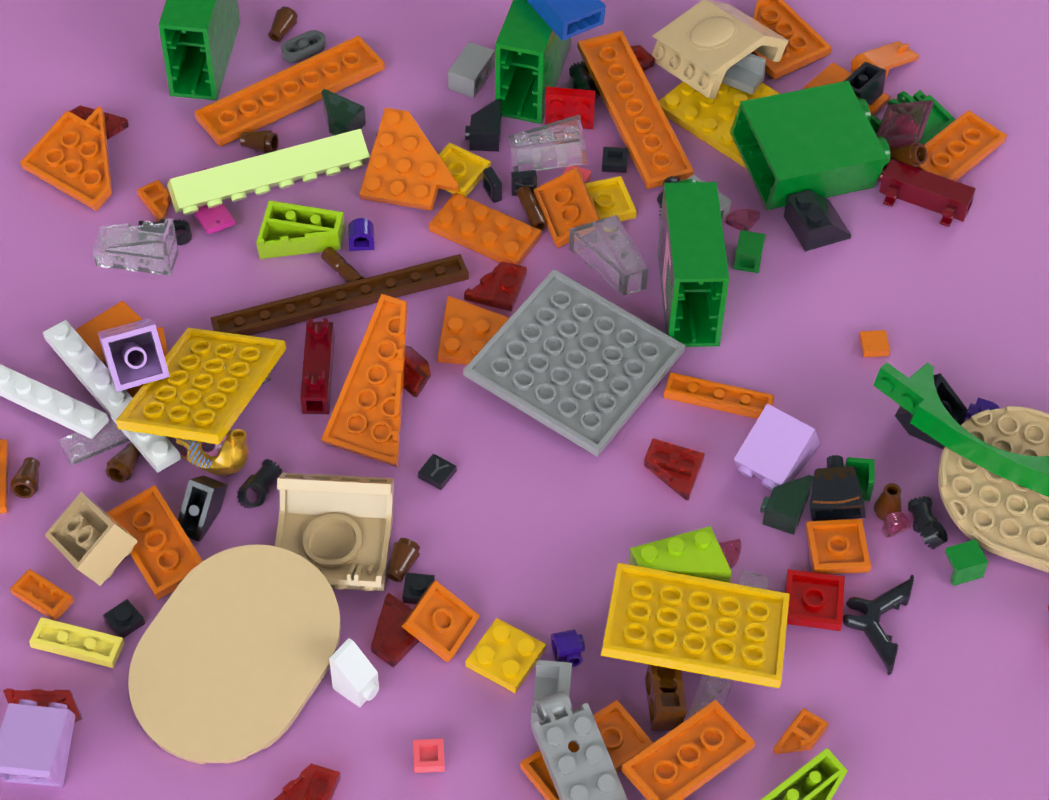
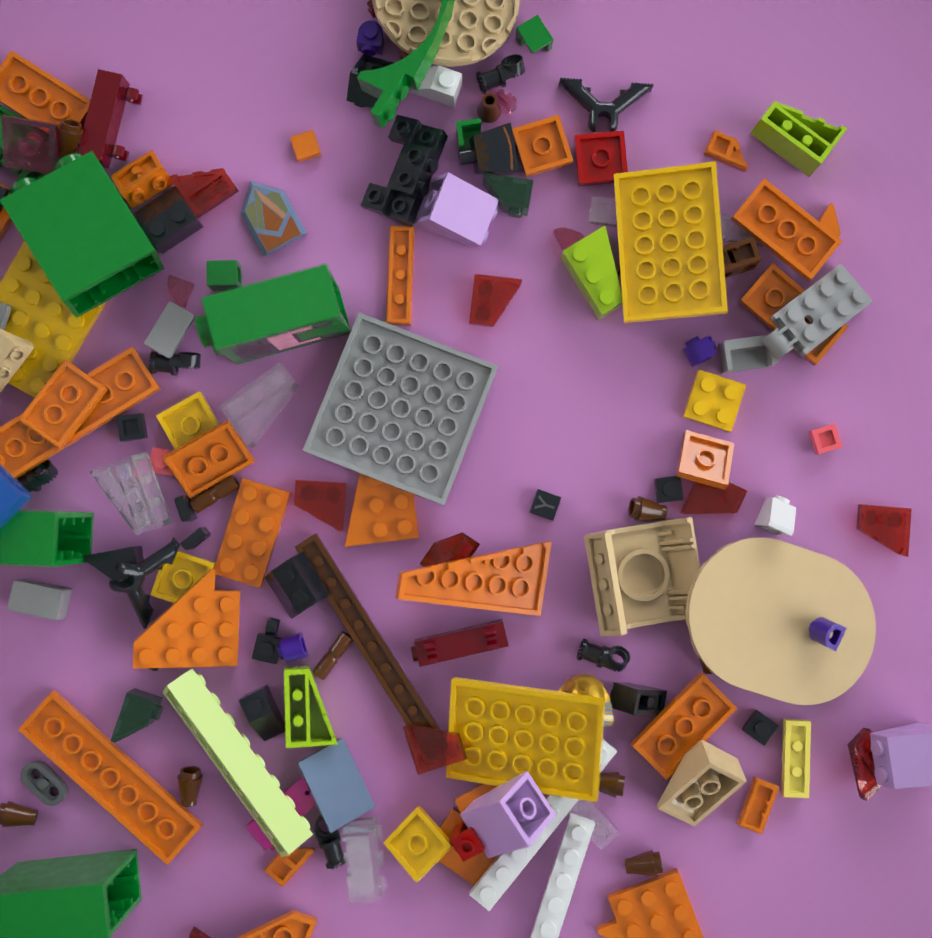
camera: 105 degrees left, 35 degrees up
(118, 316) = (466, 842): none -> red bracket
(132, 292) = (418, 843): none -> yellow plate
(206, 682) = (820, 632): none -> dark purple plate
(216, 243) = (336, 785): none -> sand blue tile
(223, 315) = (433, 747): none -> clear red wing
(311, 194) = (262, 713): none -> black slope
(381, 223) = (266, 644): none -> black plate
(422, 245) = (297, 584): none -> black slope
(471, 128) = (137, 573): none -> black piece
(567, 102) = (79, 480): red plate -> none
(648, 109) = (63, 404): none -> orange tile
(803, 303) = (270, 218): none -> tile
(833, 423) = (411, 173): none -> black bracket
(841, 253) = (205, 189): none -> clear red wing
(860, 208) = (142, 179): none -> orange bracket
(920, 467) = (440, 85): none -> white slope

